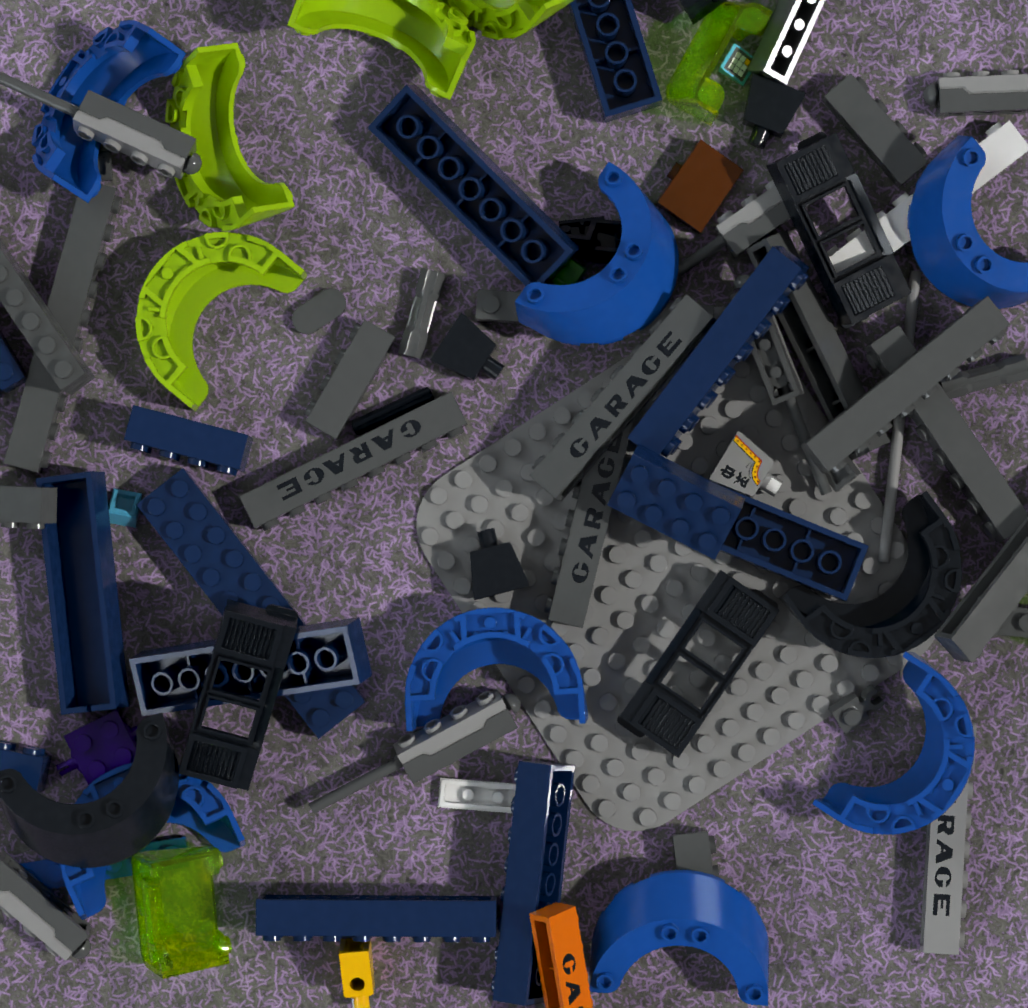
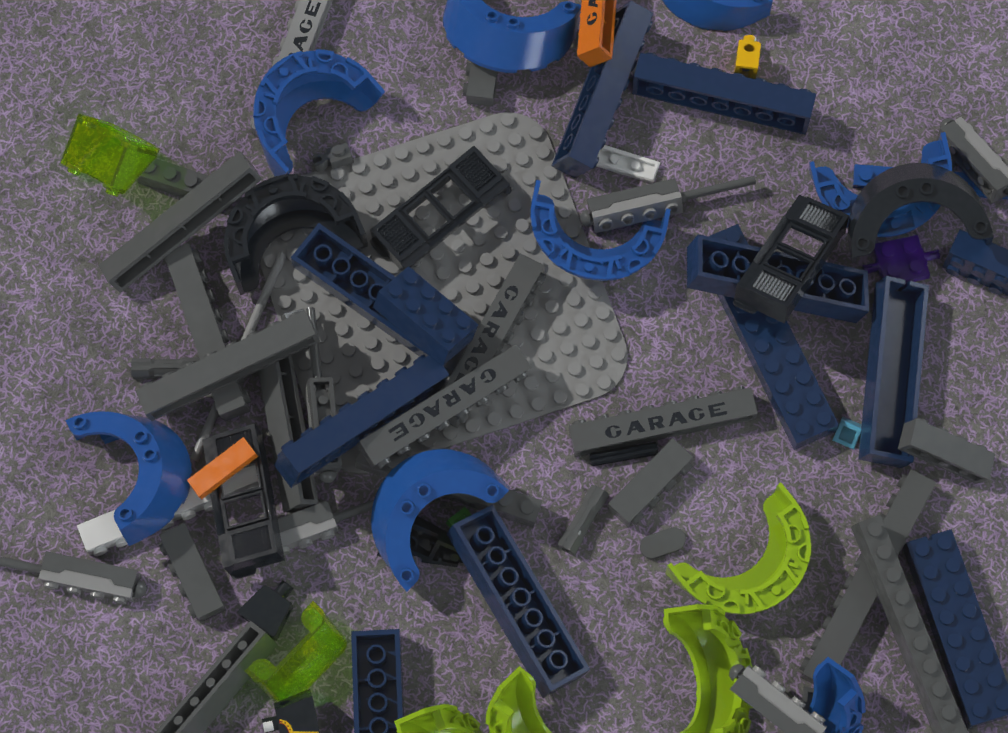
camera: 165 degrees left, 15 degrees down
(178, 910) = (869, 129): clear neon green windscreen -> none
(189, 439) = (787, 464): dark blue brick -> none
(467, 351) = (555, 482): black torso -> none
(495, 567) = (574, 314): black torso -> none
(698, 186) = (341, 564): reddish brown container -> none
(736, 64) = (281, 650): slope -> none
(745, 468) = (367, 341): light grey torso -> none
(874, 256) = (222, 468): none -> orange tile

